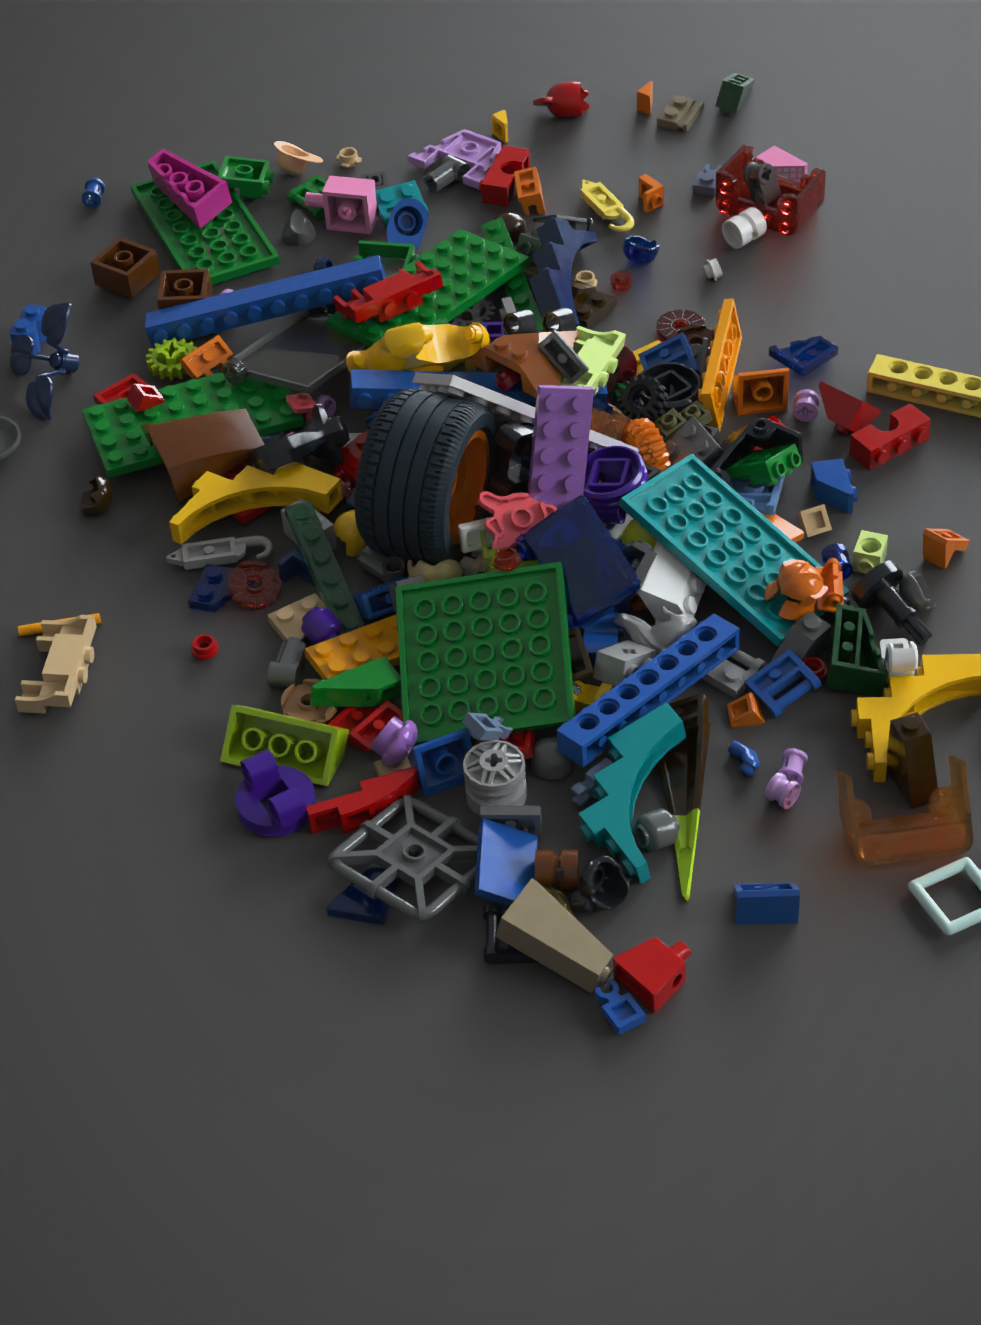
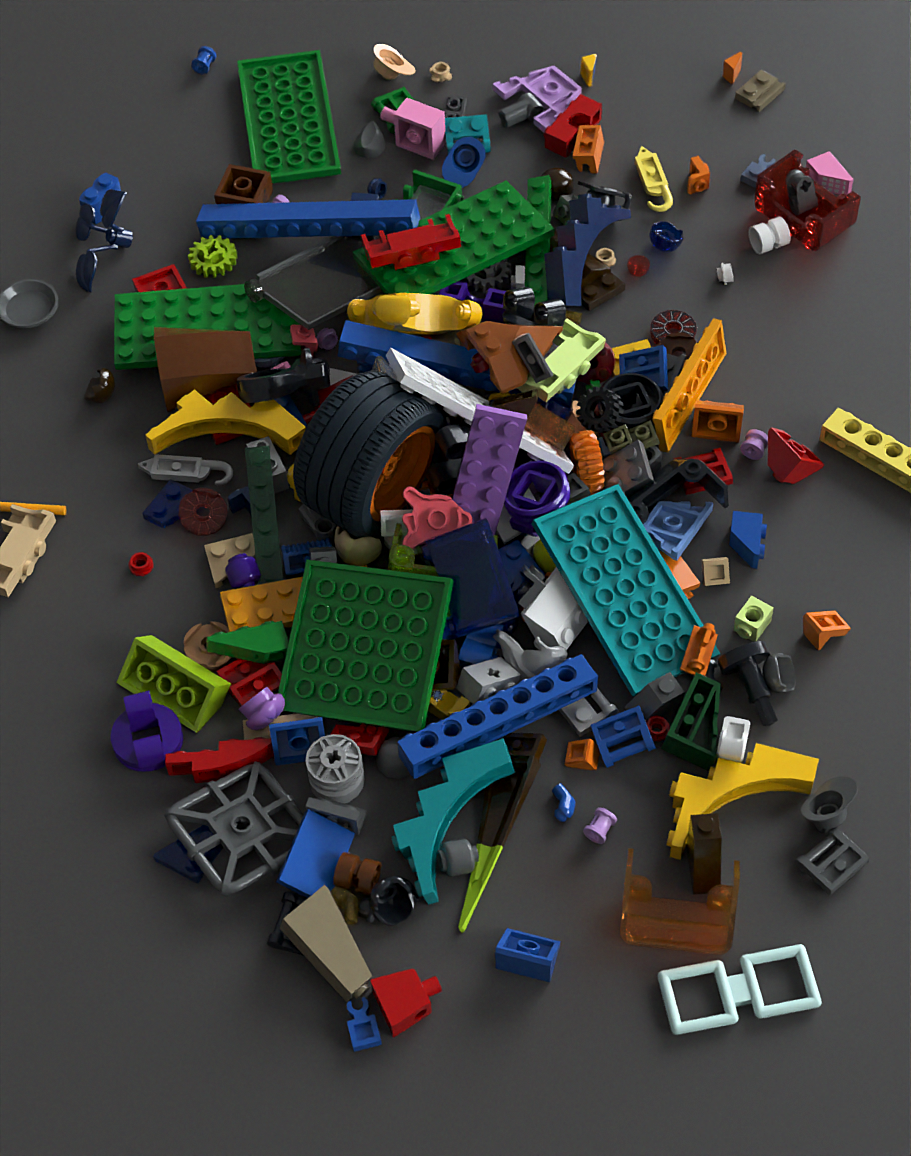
camera: 15 degrees right, 10 degrees up
(125, 267) = (202, 150): reddish brown brick -> none
(144, 397) = (169, 296): red slope -> none
(189, 187) = (285, 80): dark pink wedge -> none
(206, 358) = (239, 265): orange plate -> none
(248, 174) = (340, 74): green plate -> none
(287, 667) = (201, 606): dark grey piece -> none
(485, 728) = (338, 722): sand blue plate -> none
(506, 559) = (406, 562): clear red plate -> none
(565, 100) = (657, 54): red piece -> none
(584, 789) = (409, 799): sand blue plate -> none
(733, 93) = (817, 79): dark green slope -> none
(766, 465) = (688, 505): green plate -> none
(782, 790) = (582, 847): lavender wheel -> none
(800, 582) = (666, 644): orange helmet -> none
(805, 355) = (775, 387): clear blue wing -> none
(841, 553) = (721, 616): clear blue wheel -> none
(875, 447) = (802, 506): red arch -> none

